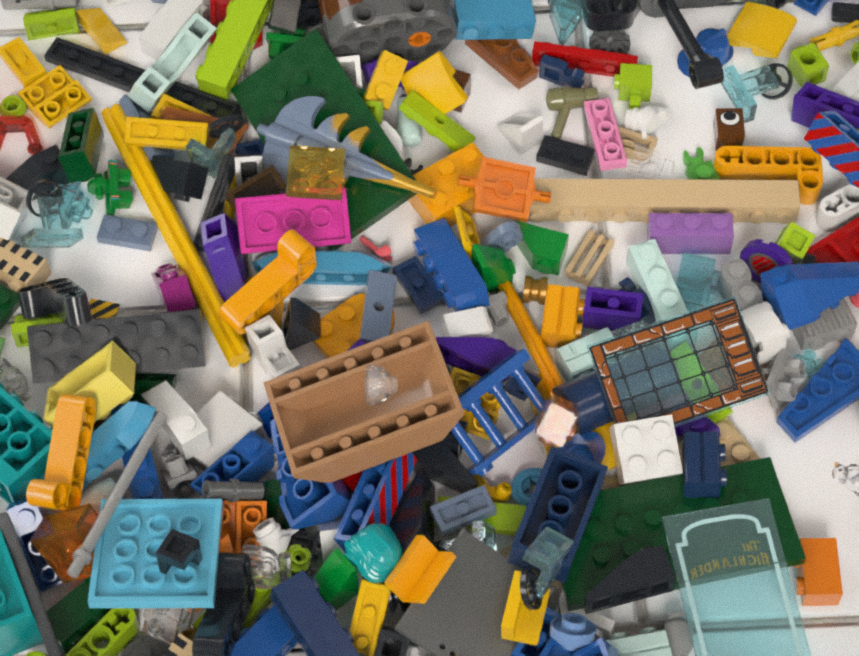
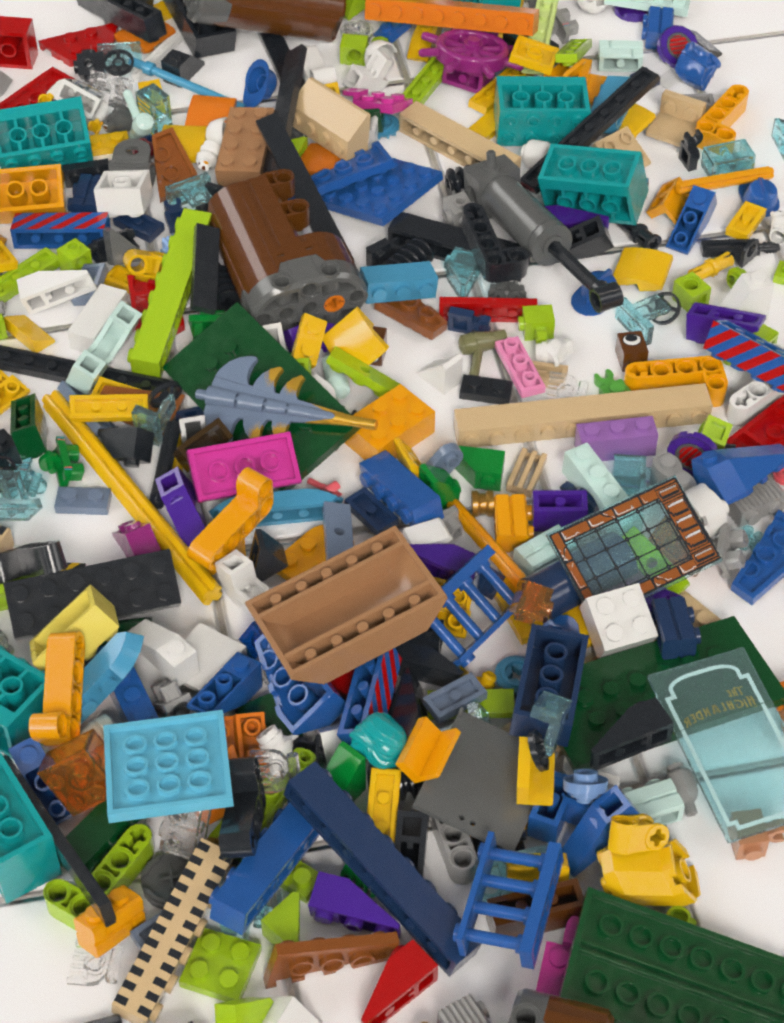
camera: 10 degrees left, 10 degrees down
(83, 555) = (95, 774): light grey bar -> none
(178, 551) = (192, 753): black panel -> none
(232, 490) = (231, 703): dark grey pin -> none
(315, 173) = (260, 419): clear yellow plate -> none
(378, 384) = (360, 582): clear brick -> none
(504, 189) = (438, 417): orange plate -> none

